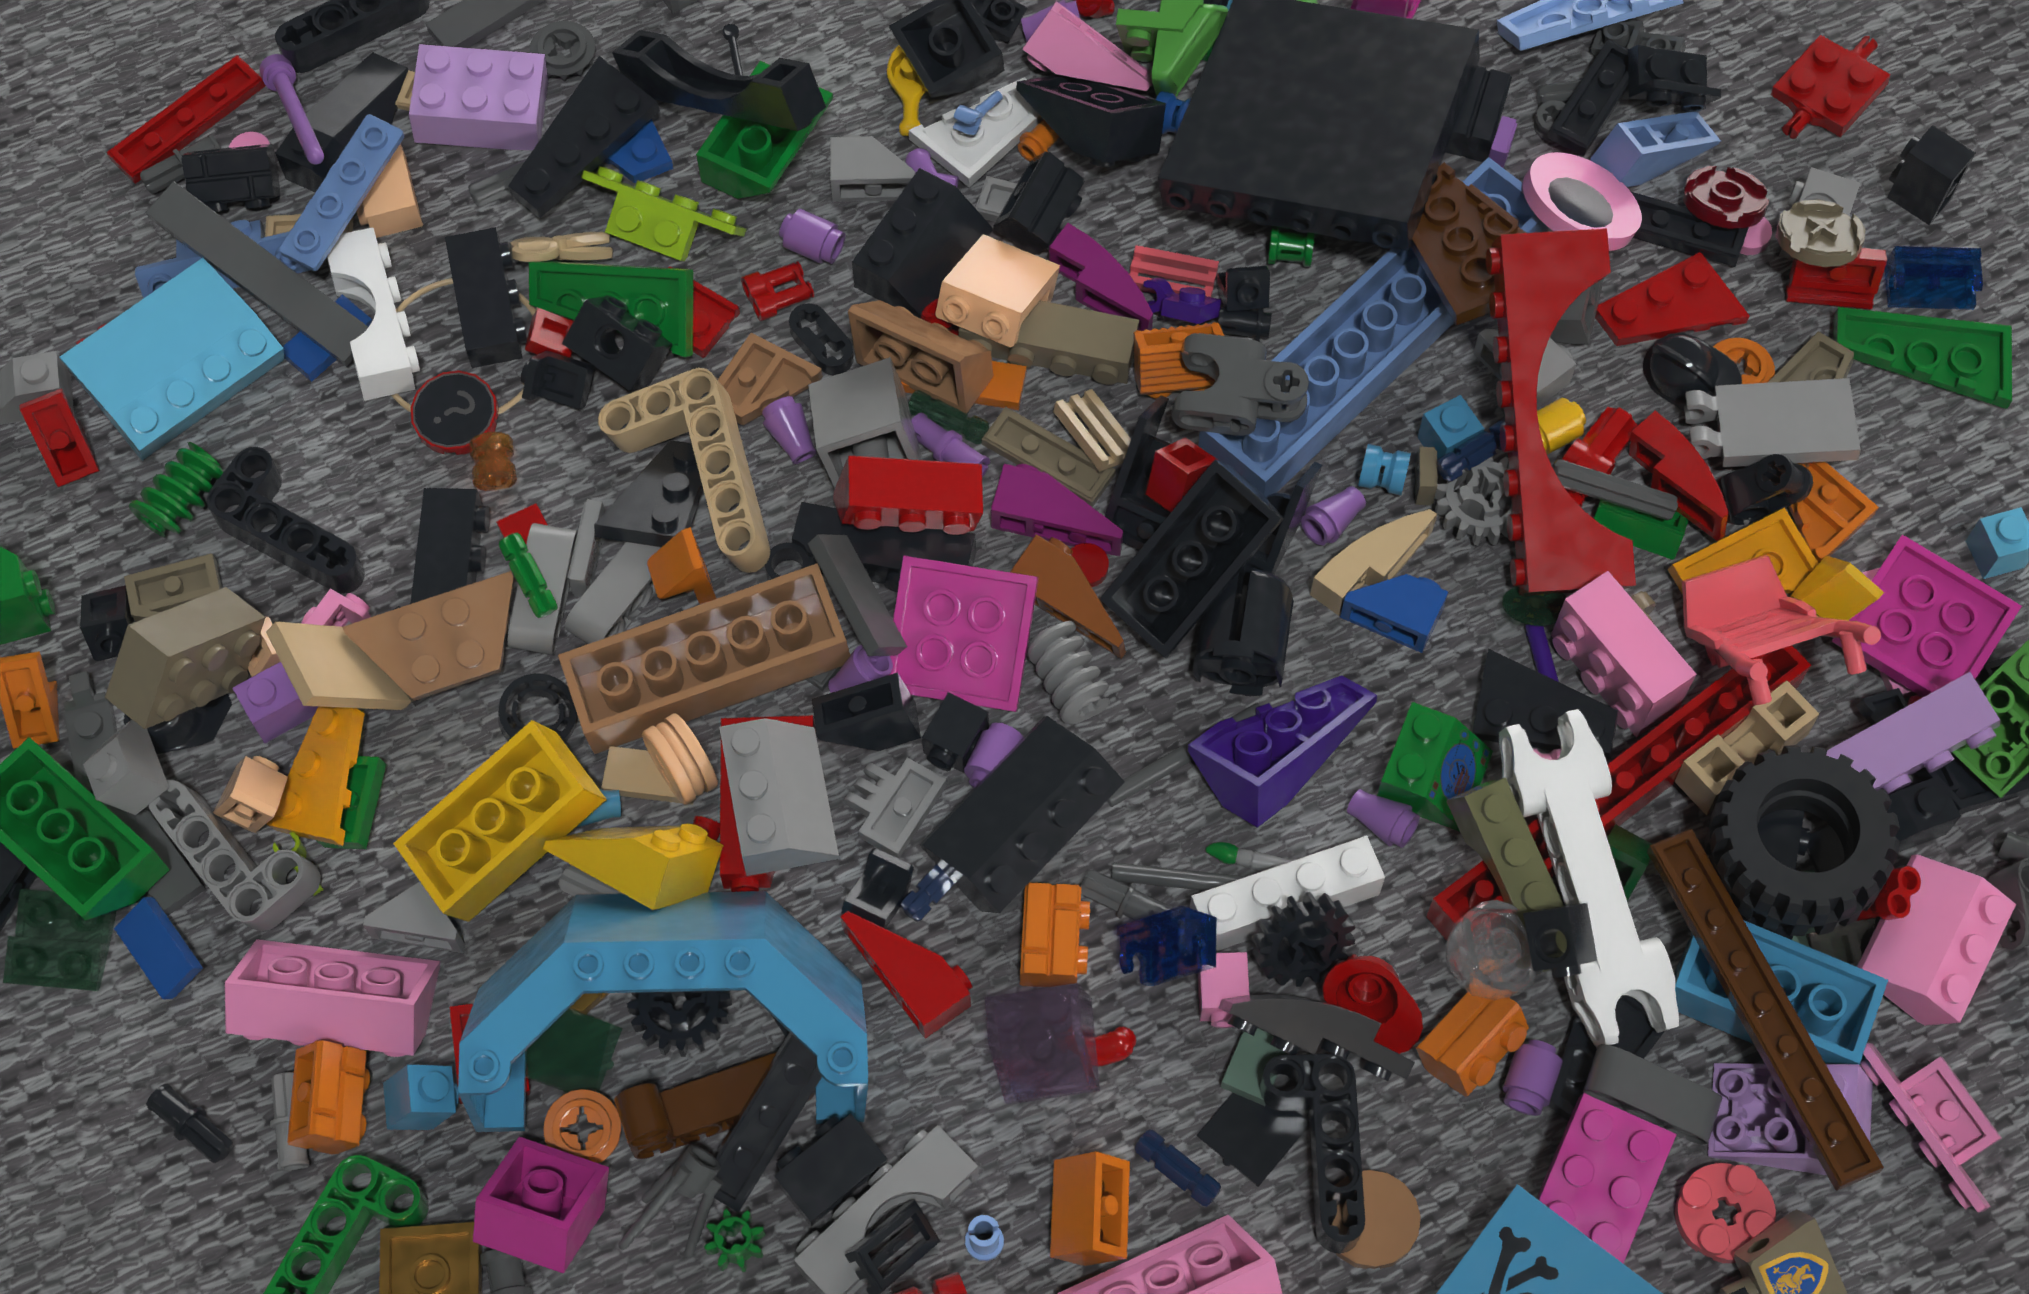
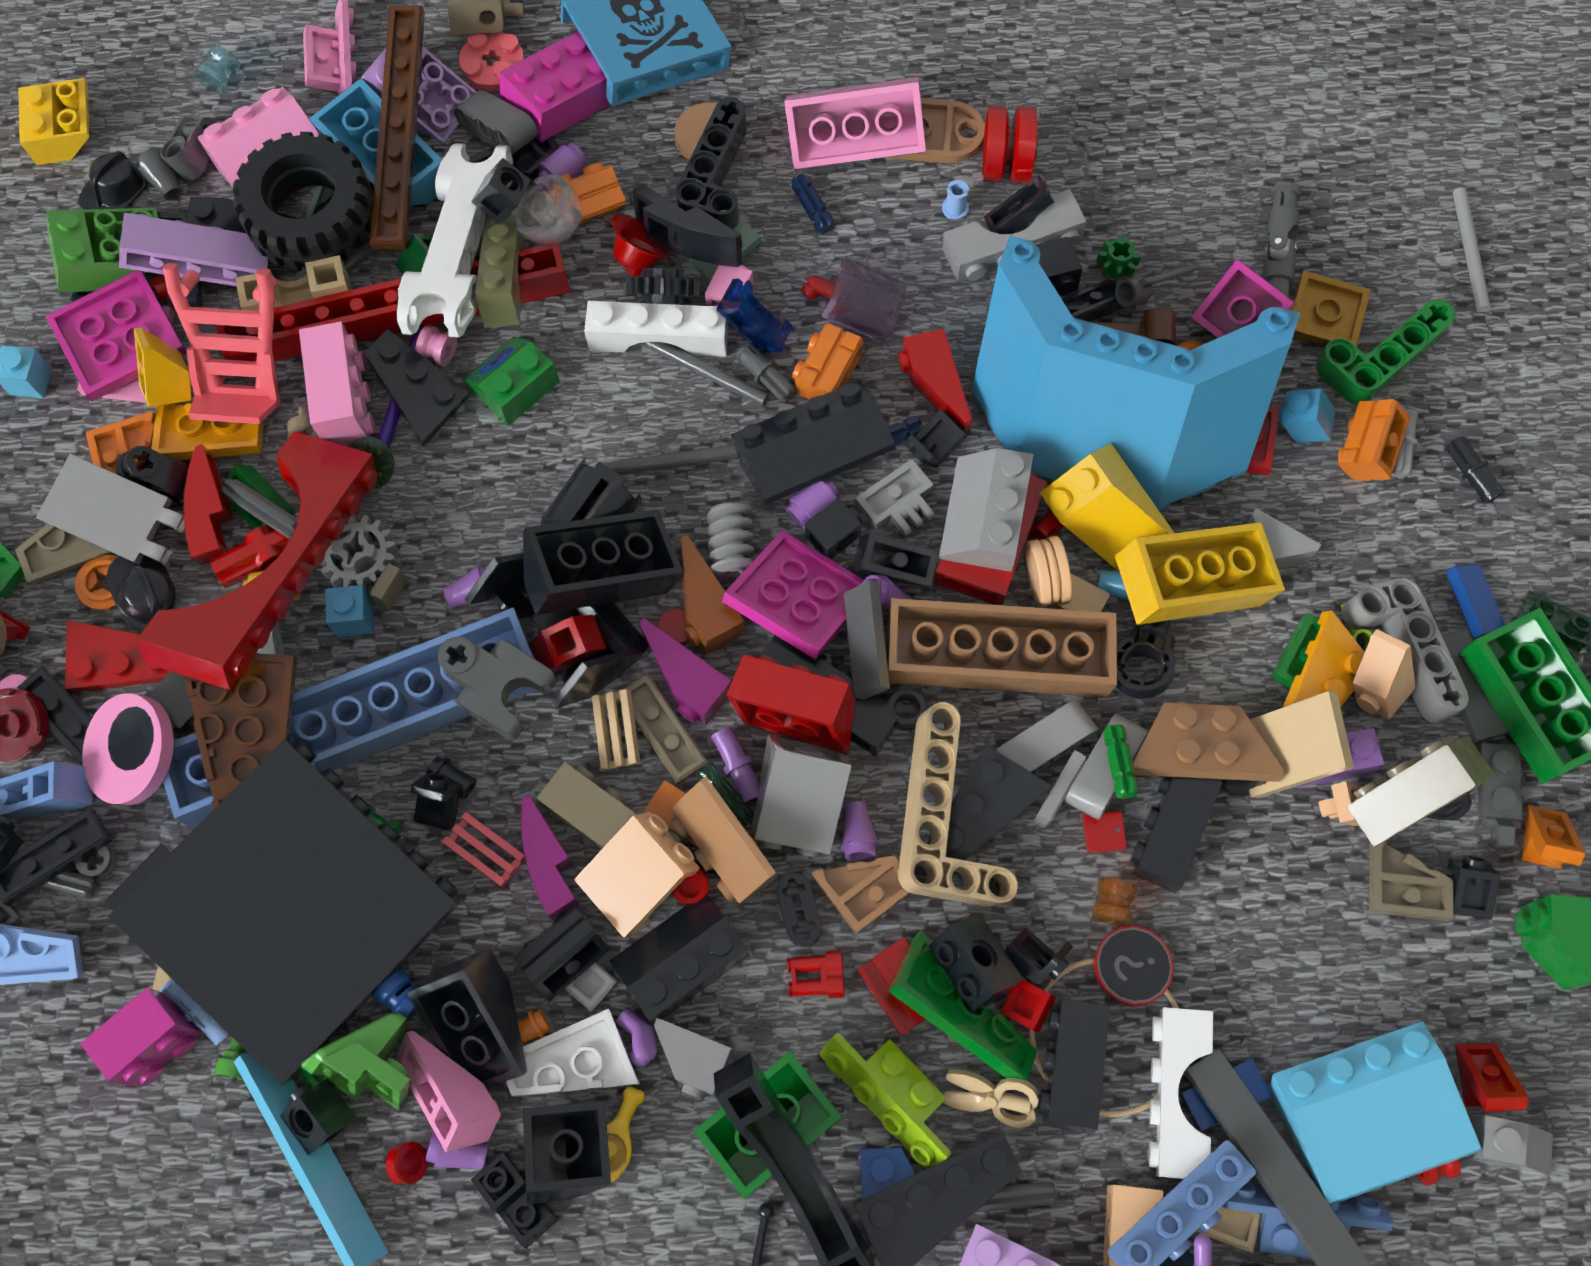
camera: 155 degrees left, 5 degrees up
(126, 770) = (1490, 724): light grey slope -> none
(177, 490) = (1387, 978): green piece -> none
(290, 531) = (1301, 909): black beam -> none
(331, 996) = (1354, 516): bright pink slope -> none
(337, 610) = (1294, 811): bright pink bracket -> none
(681, 569) = (993, 724): orange slope -> none
(812, 236) = (767, 1010): medium lavender brick -> none
(970, 119) = (582, 1062): medium blue hand -> none
(1090, 1209) = (882, 188): orange brick -> none
(1160, 363) = (528, 757): orange brick -> none
(1187, 305) = (491, 803): dark purple plate -> none
(1231, 854) = (678, 379): piece -> none
(1252, 1136) = (761, 207): black piece -> none
(1270, 756) = (611, 430): dark purple wedge -> none
(1371, 558) = (464, 540): tan slope -> none
(1386, 818) = (563, 356): medium lavender cone -> none
(1394, 472) = (414, 605): dark azure wheel -> none
(1398, 609) = (466, 494): blue slope -> none
(1470, 453) = (342, 577): dark blue axle -> none
(1503, 140) = (150, 843): medium lavender tile -> none

